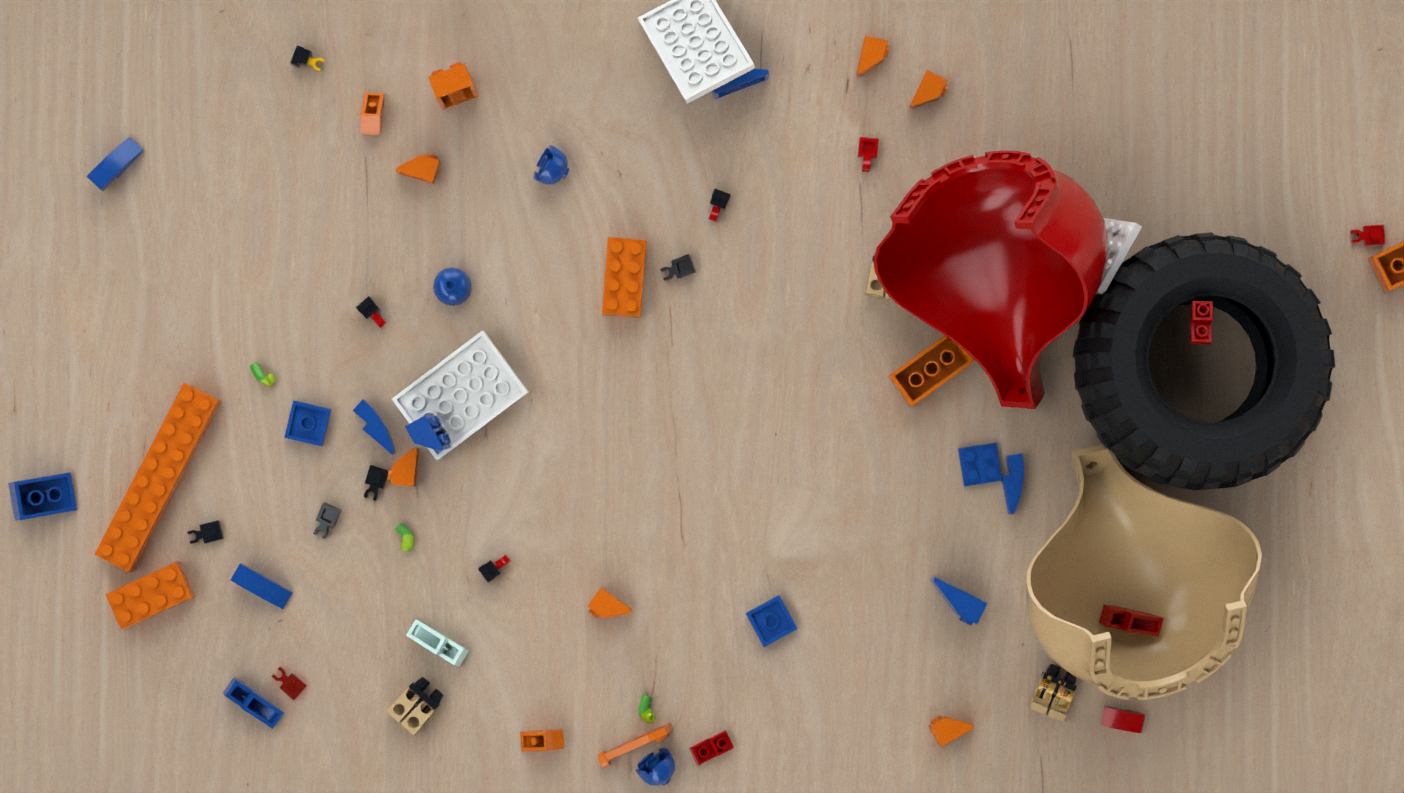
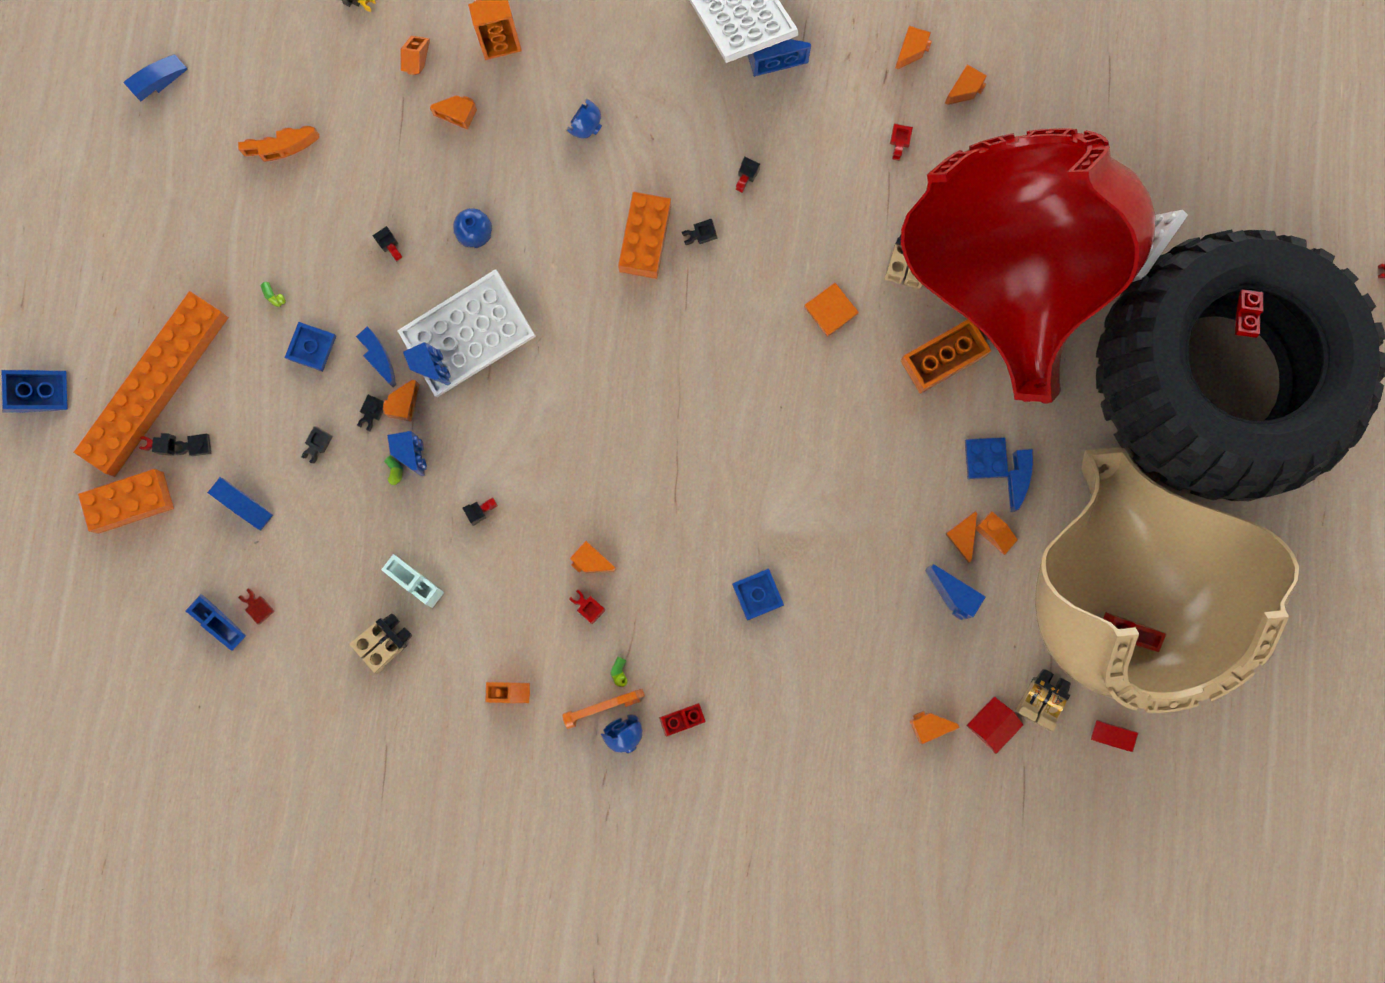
camera: 10 degrees right, 5 degrees down
(175, 537) = (161, 446): none -> black piece
(256, 219) = (287, 142): none -> orange slope
(417, 519) = (407, 449): none -> blue slope
(611, 651) = (589, 608): none -> red plate
(815, 332) = (831, 309): none -> orange tile
(964, 542) = (963, 536): none -> orange tile
(995, 537) = (996, 532): none -> orange slope
(1009, 721) = (995, 724): none -> red slope

